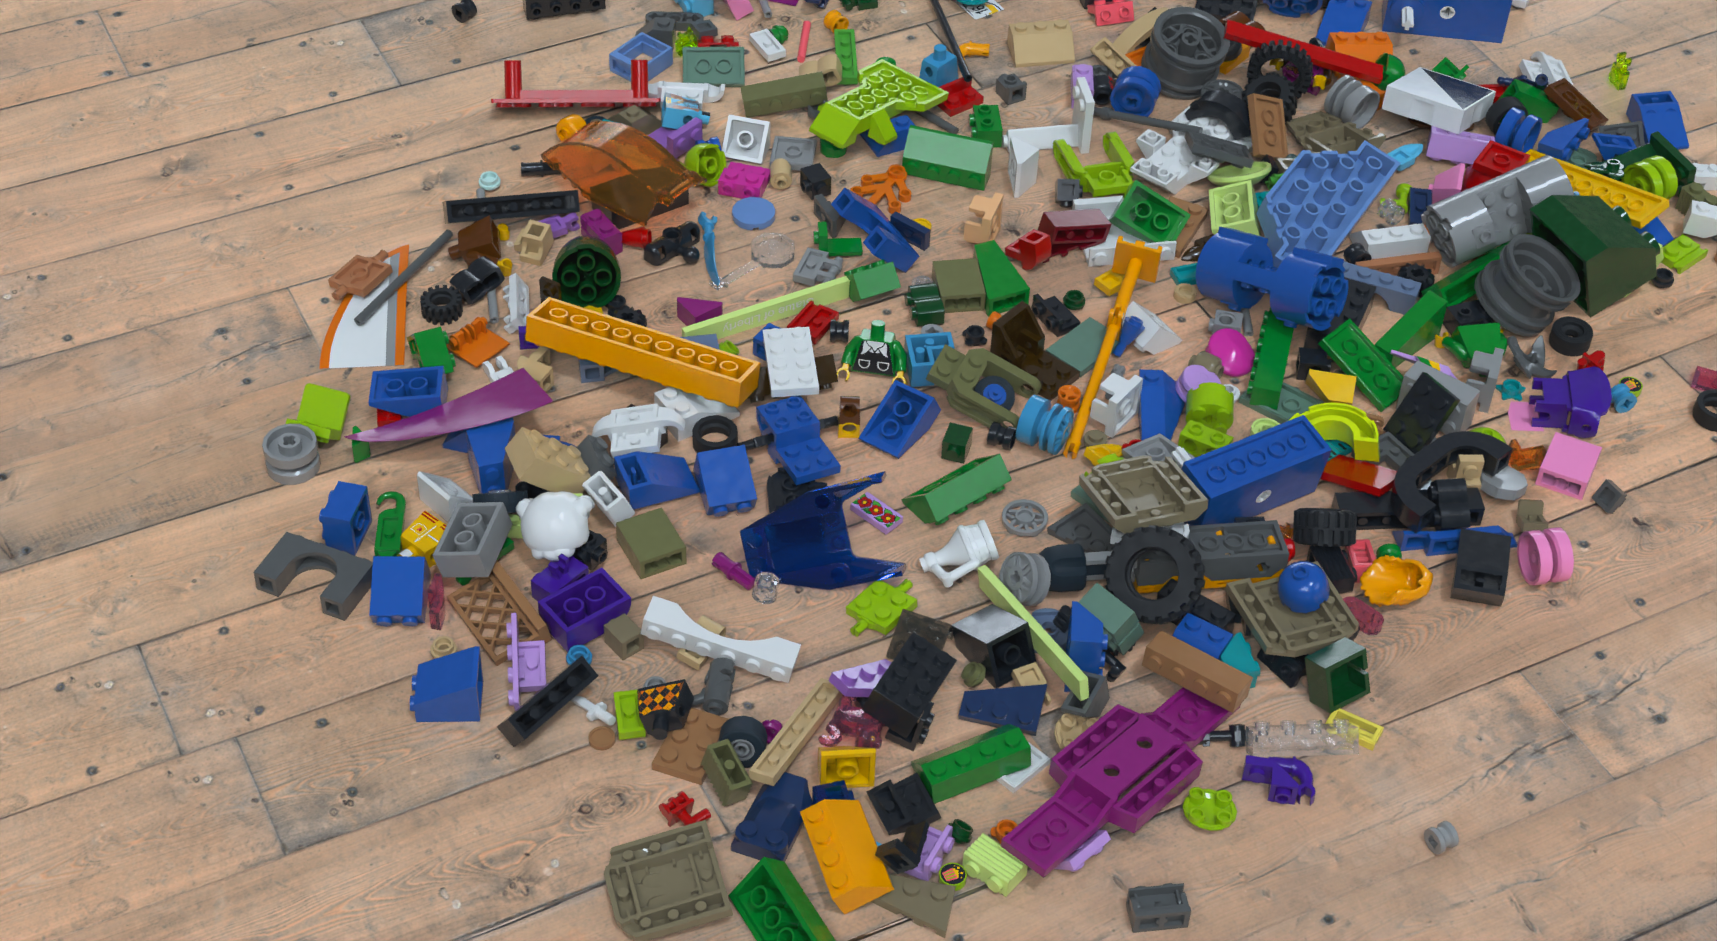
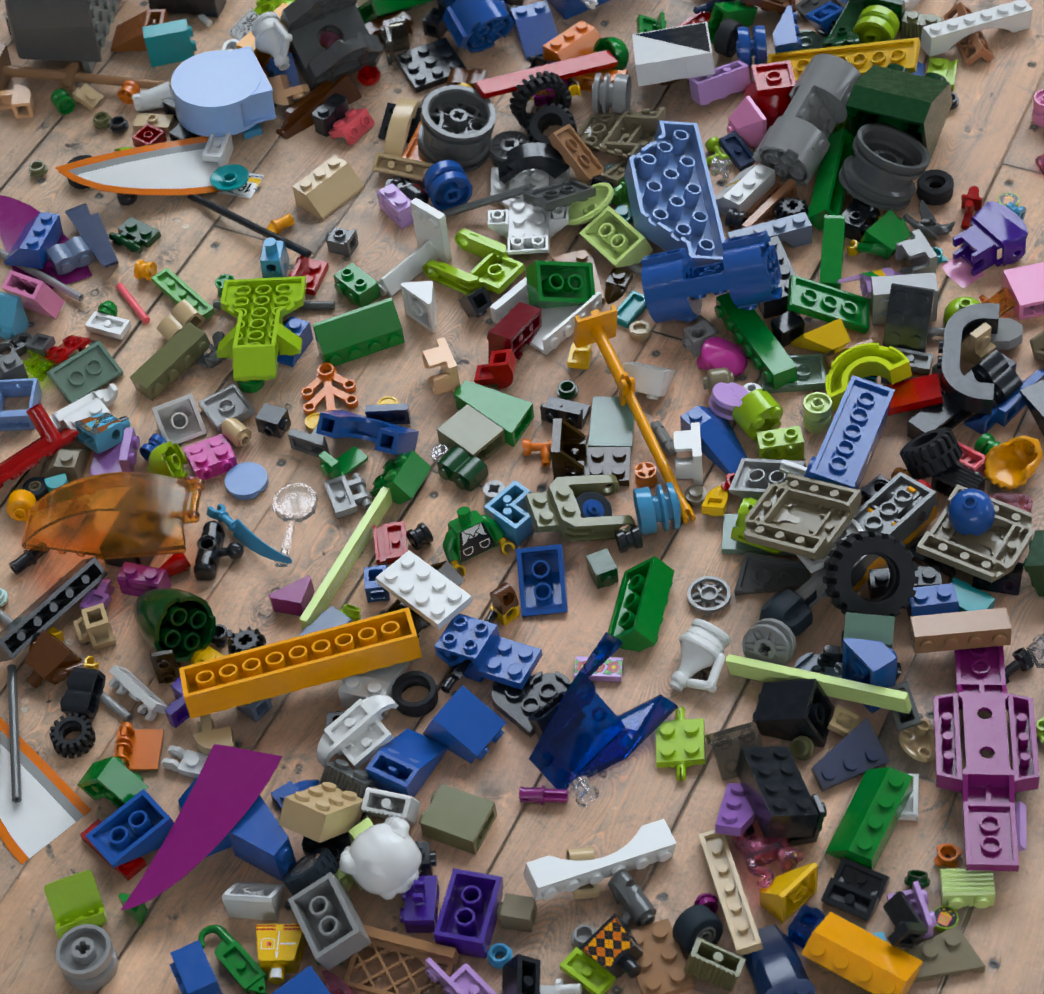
camera: 30 degrees left, 5 degrees up
(974, 336) = (524, 470): black plate -> none
(1130, 331) = (642, 388): blue cone -> none
(1406, 155) = (686, 111): medium azure plate -> none

